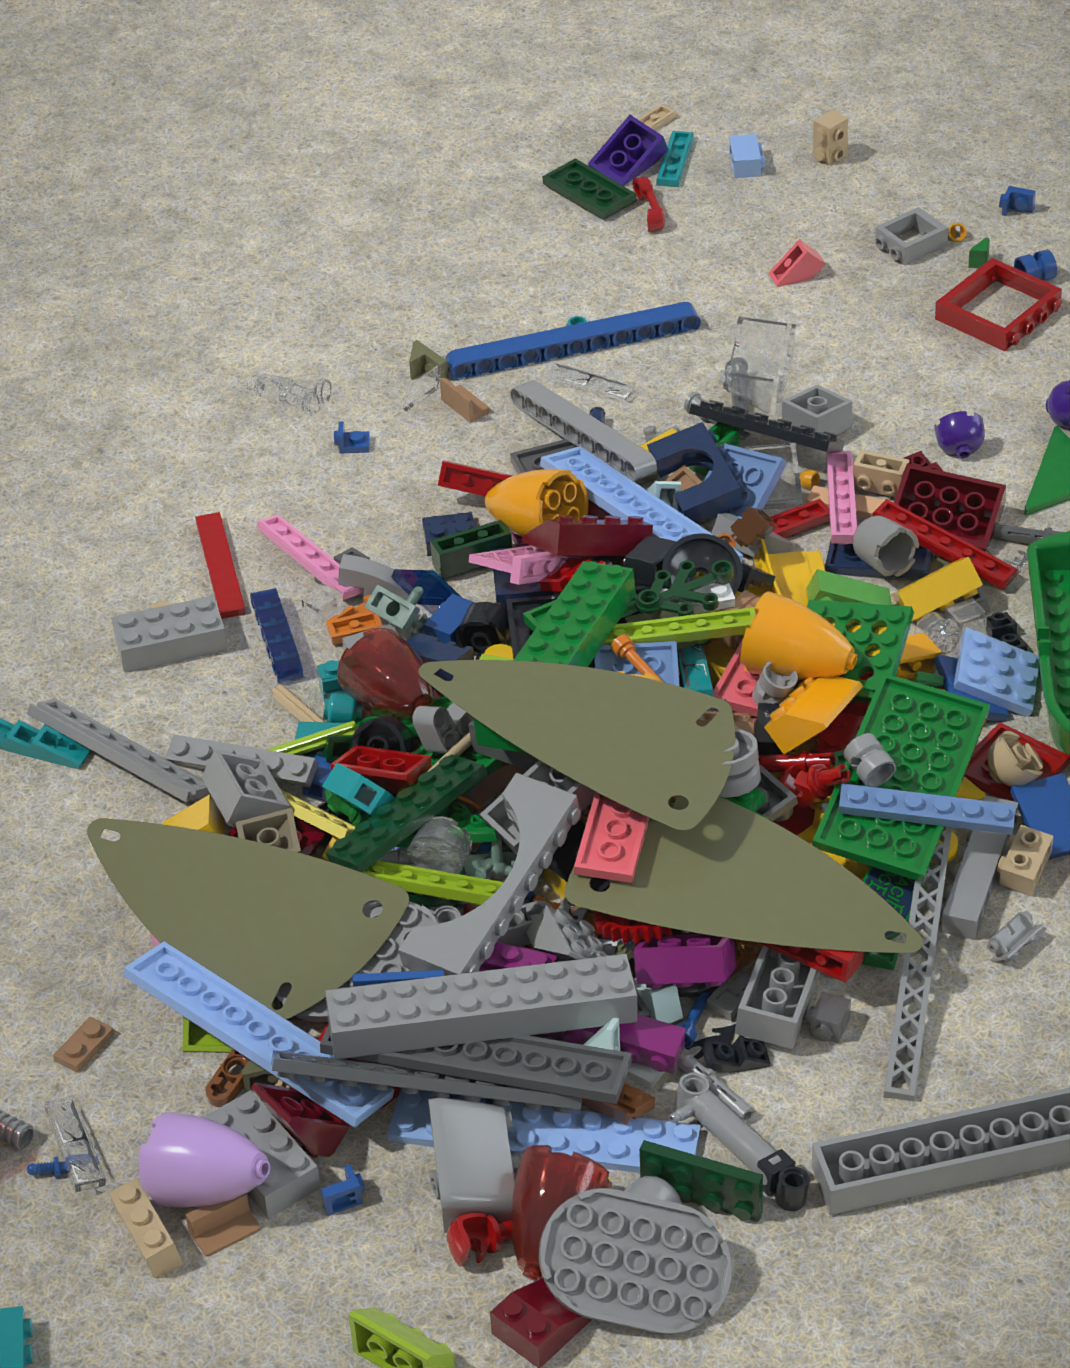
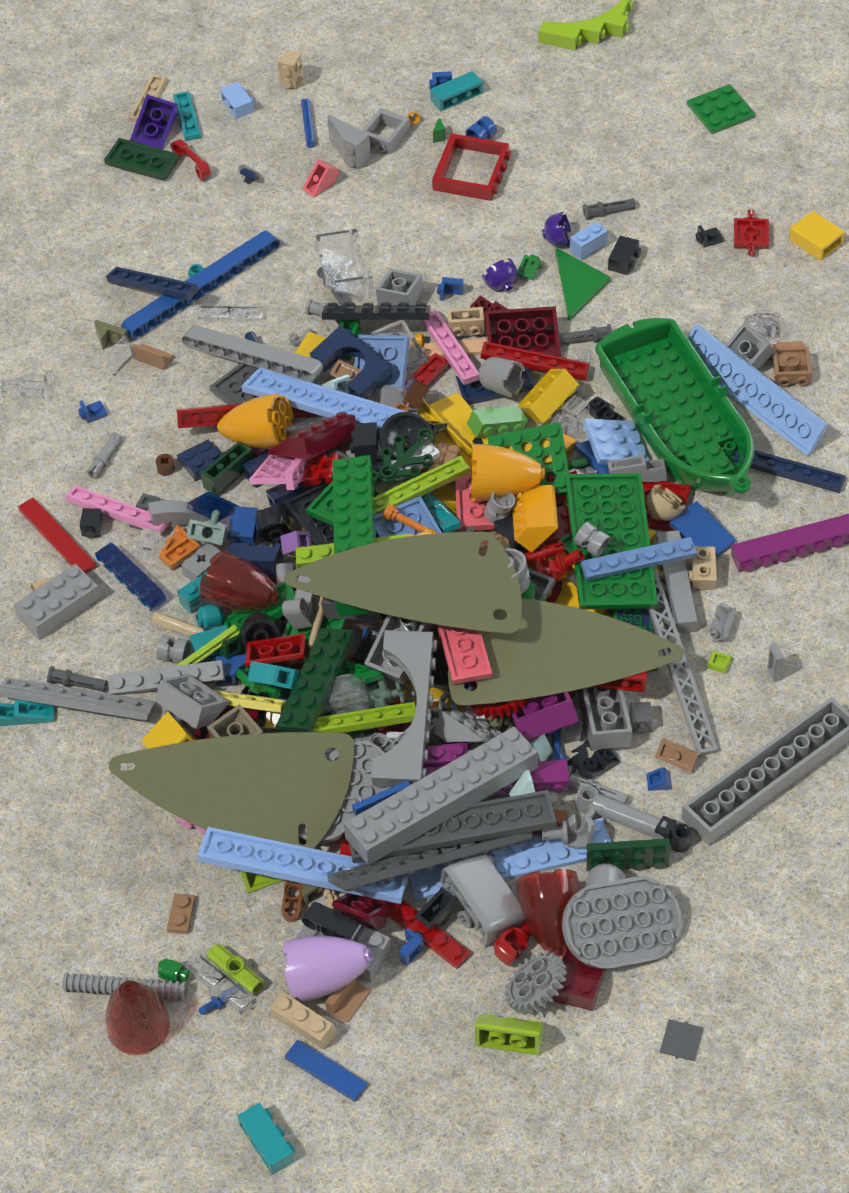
camera: 25 degrees left, 10 degrees up
(26, 1107) = (172, 971): none -> green arm
(104, 1134) = (244, 975): none -> lime piece
(126, 724) = (69, 678): none -> dark grey pin
(139, 1305) = (326, 1070): none -> blue tile
(247, 1116) = (331, 923): none -> black beam
(268, 560) = (91, 522): none -> black brick
(270, 730) = (173, 649): none -> light grey wheel
(328, 495) = (101, 459): none -> light grey pin
(379, 1184) = (434, 939): none -> red plate
(400, 524) = (165, 464): none -> reddish brown wheel
(403, 1157) = (437, 909): none -> black slope
(473, 1296) = (535, 982): none -> light grey gear
(491, 645) = (295, 540): none -> medium lavender brick
(511, 320) = (152, 283): none -> dark blue plate
(638, 1122) = (571, 832): none -> light grey piece
(710, 238) = (249, 173): none -> dark blue piece
(811, 1106) = (659, 780): none -> blue slope
(820, 204) = (308, 124): none -> blue axle
(851, 1083) = (677, 755): none -> medium nougat plate
(856, 235) = (349, 142): none -> light grey slope
(886, 429) = (450, 286): none -> blue bracket
(984, 987) = (719, 661): none -> lime tile
(1006, 437) = (529, 267): none -> green bracket
(1010, 714) = (650, 470): none -> light grey slope
(1031, 216) = (456, 91): none -> teal brick
(1056, 1009) = (775, 662): none -> light grey tile

